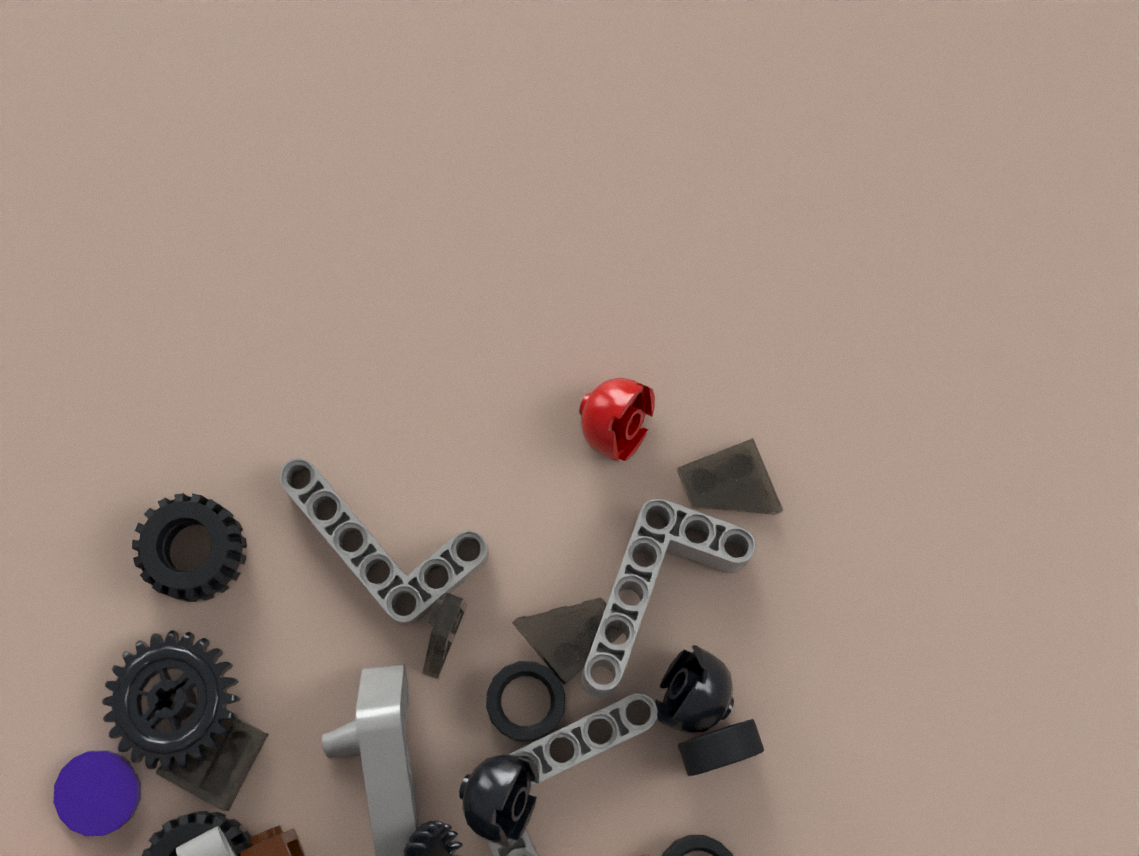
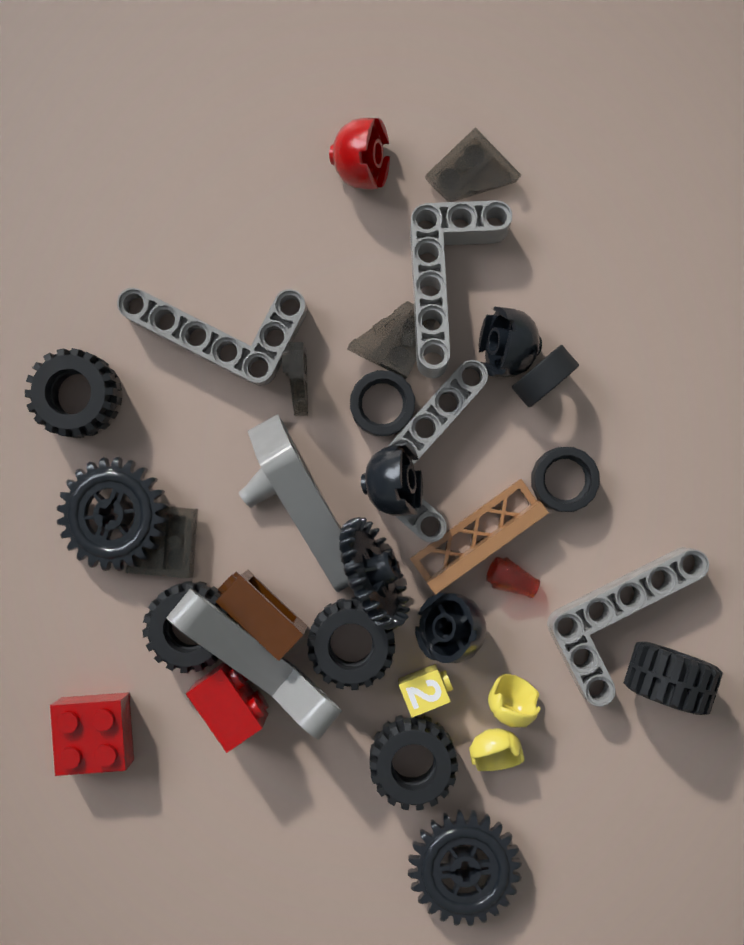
camera: 20 degrees left, 10 degrees up
(97, 793) = (88, 605): dark purple tile -> none

